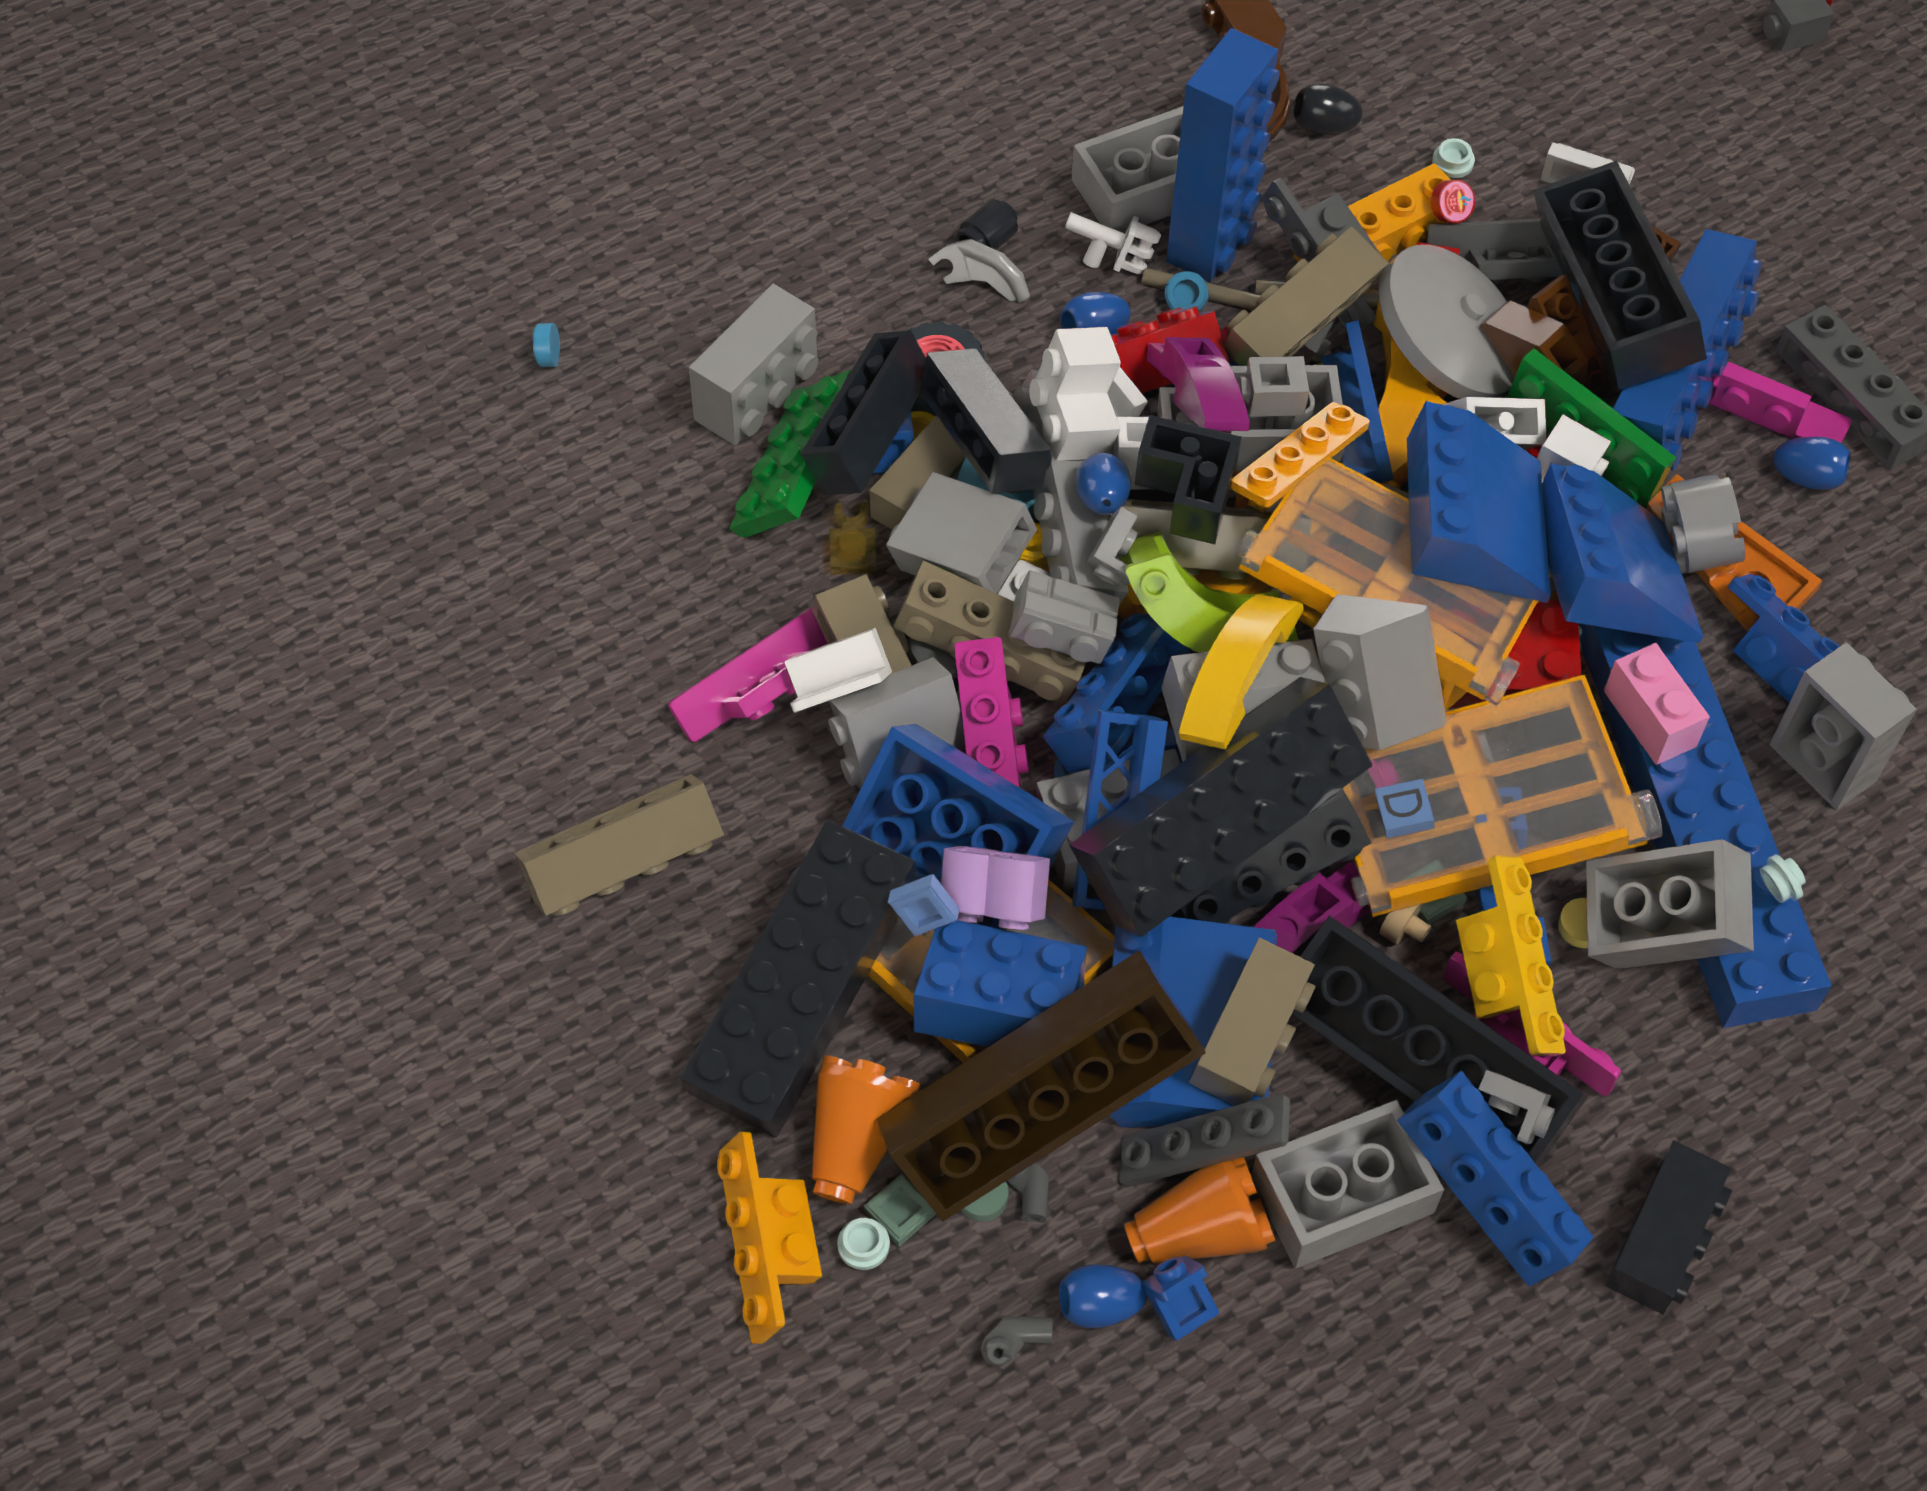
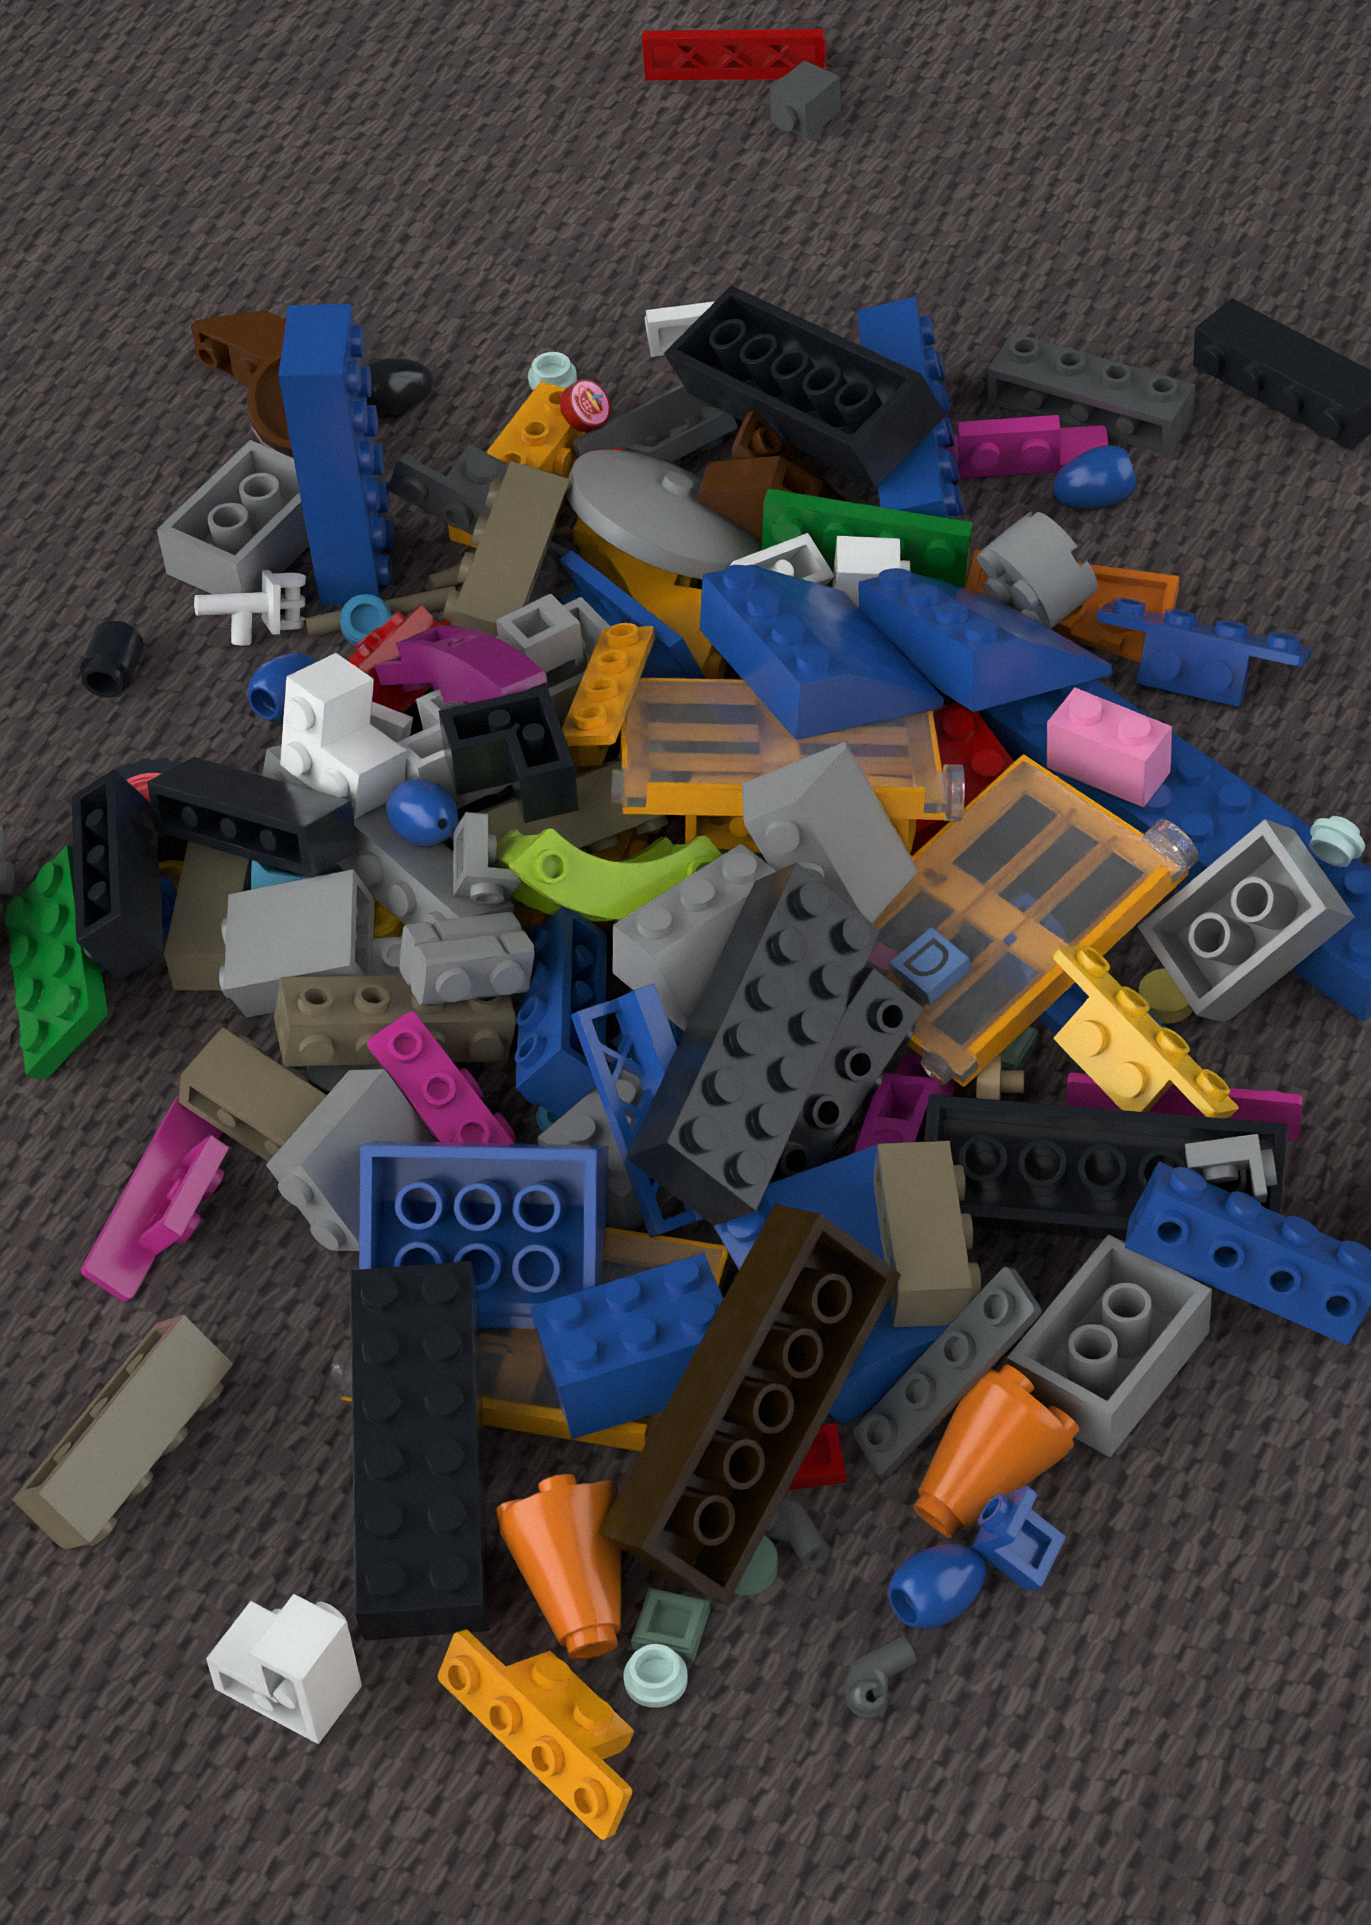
camera: 25 degrees left, 10 degrees down
(618, 1087) = (289, 1664): none -> white brick
(837, 669) = (253, 1132): white panel -> none
(852, 544) = (170, 1026): clear yellow plate -> none
(923, 905) = (510, 1298): medium blue tile -> none
(982, 263) = (132, 690): light grey piece -> none
(996, 885) = (570, 1243): lavender brick -> none
(1086, 1148) = (823, 1461): none -> red tile
(1231, 666) = (687, 904): yellow slope -> none
(1842, 725) = (1293, 685): light grey brick -> none

